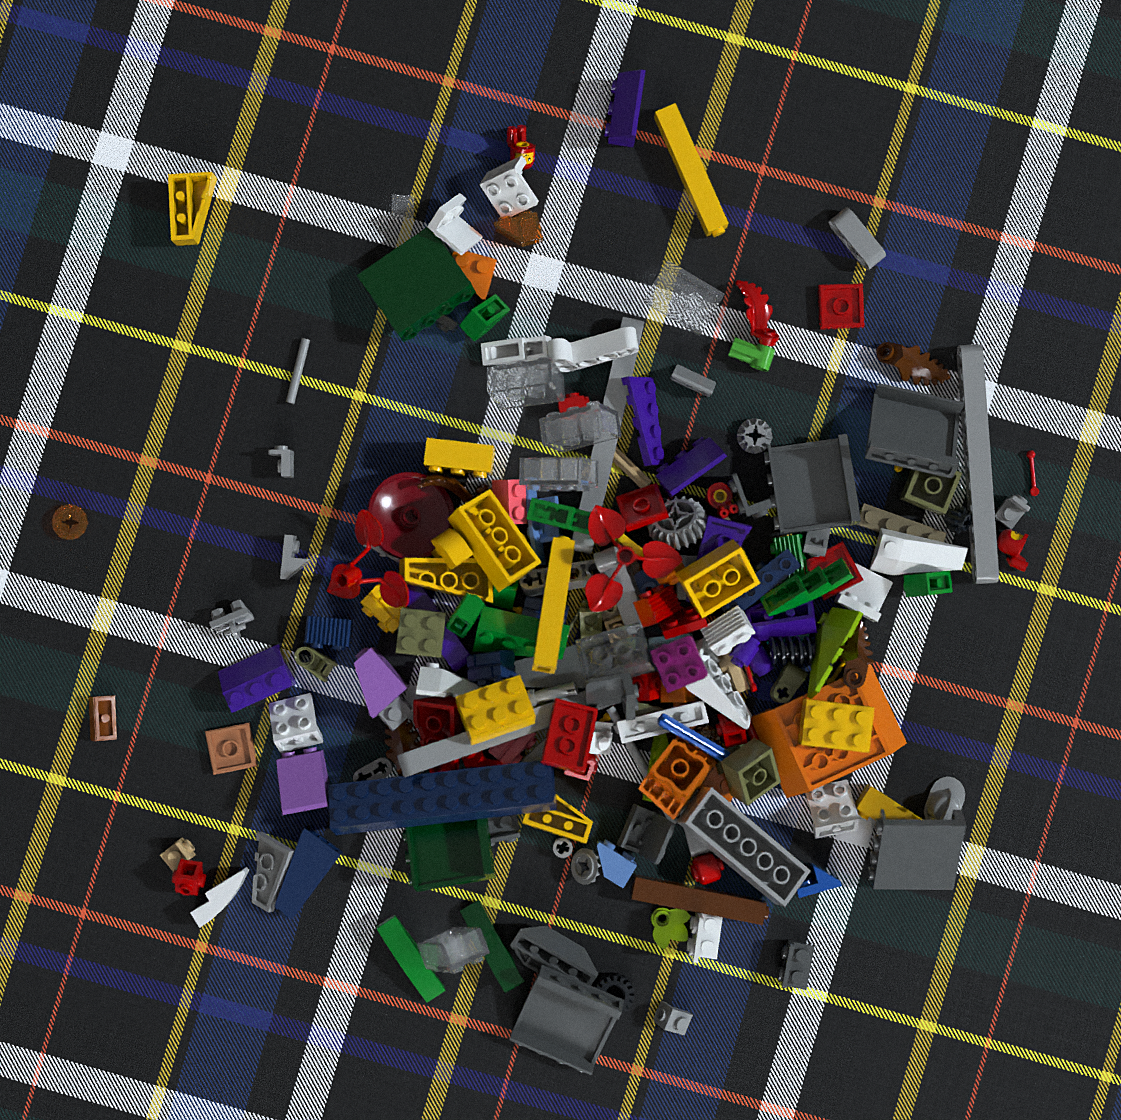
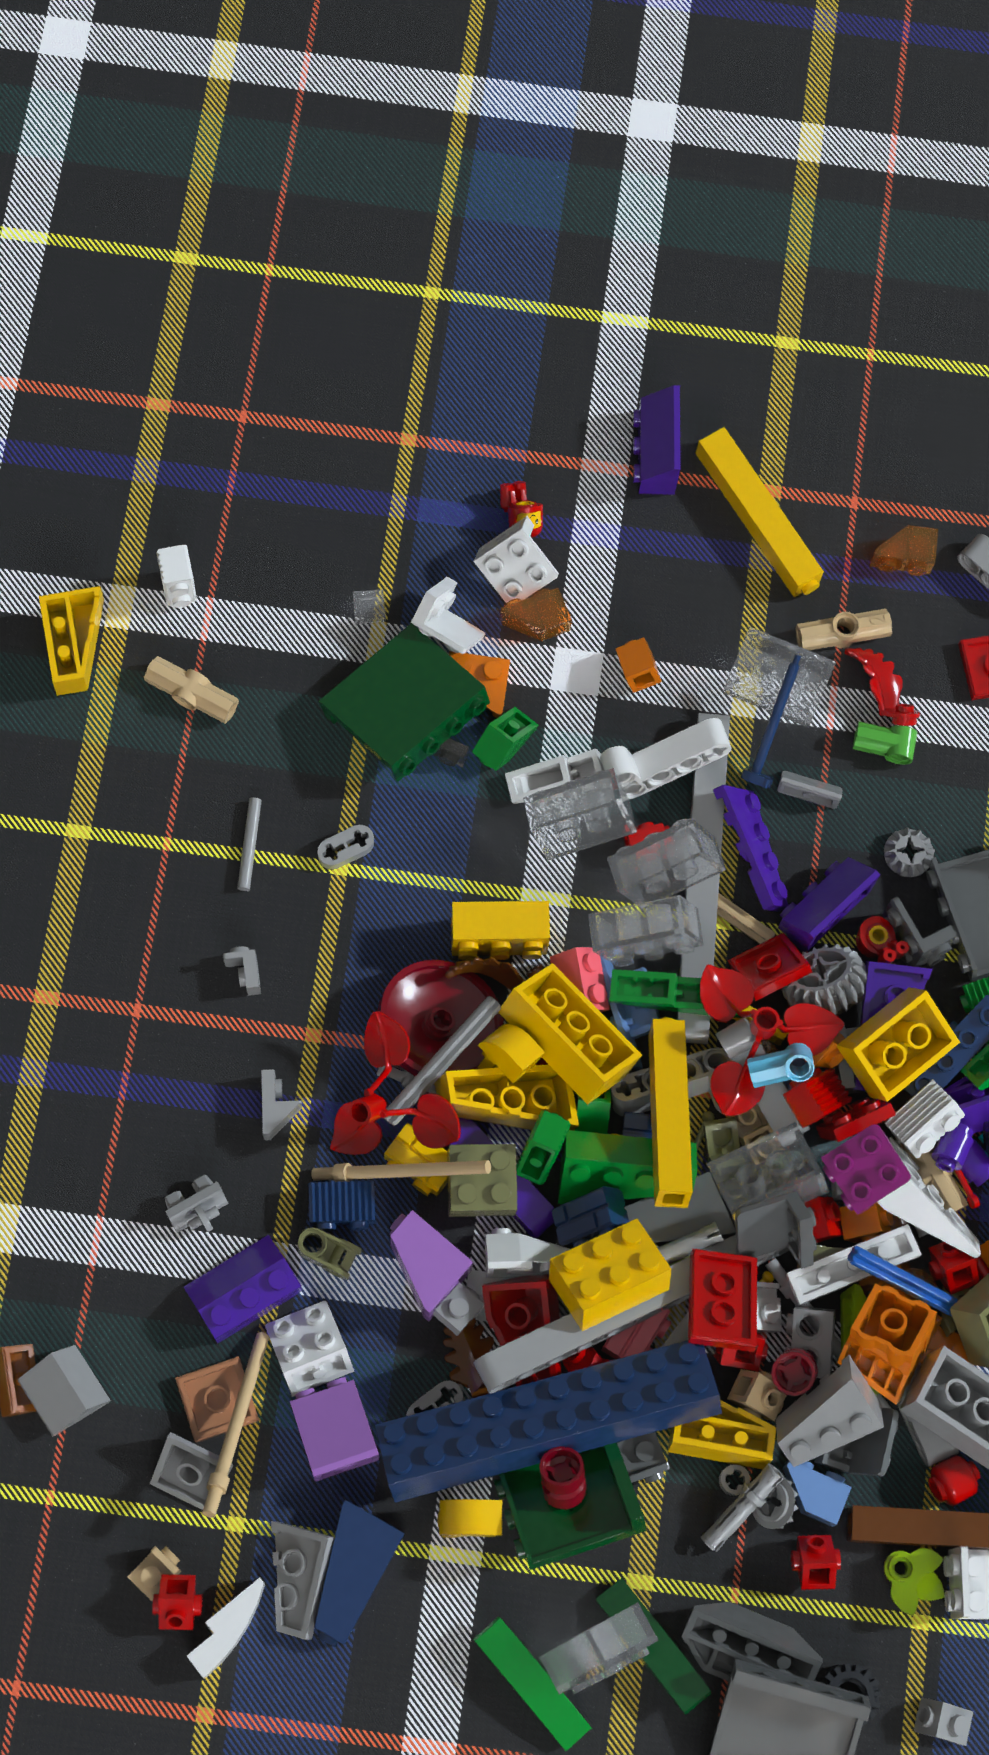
camera: 10 degrees left, 15 degrees down
(131, 729) = (63, 1389): none -> light grey slope
(208, 793) = (185, 1470): none -> light grey slope
(221, 808) = (219, 1480): none -> tan bar
(268, 169) = (176, 576): none -> white brick
(270, 253) = (191, 689): none -> tan piece
(334, 611) = (347, 1172): none -> tan bar
(366, 386) = (349, 853): none -> light grey beam
(383, 852) = (470, 1518): none -> yellow brick
(406, 545) = (444, 1057): none -> light grey axle
(446, 837) = (563, 1477): none -> dark red wheel
(570, 863) = (751, 1498): none -> light grey pin
(585, 276) = (638, 665): none -> orange brick
(585, 796) = (757, 1394): none -> tan brick
(606, 909) = (816, 1562): none -> red brick
(610, 788) = (794, 1371): none -> dark red wheel
(629, 821) = (829, 1416): none -> light grey wedge
(631, 768) = (820, 1342): none -> light grey brick
(634, 585) = (778, 1068): none -> medium azure piece
(655, 366) = (754, 774): none -> dark blue piece
(722, 268) = (861, 625): none -> tan piece
(794, 212) = (908, 550): none -> clear orange slope

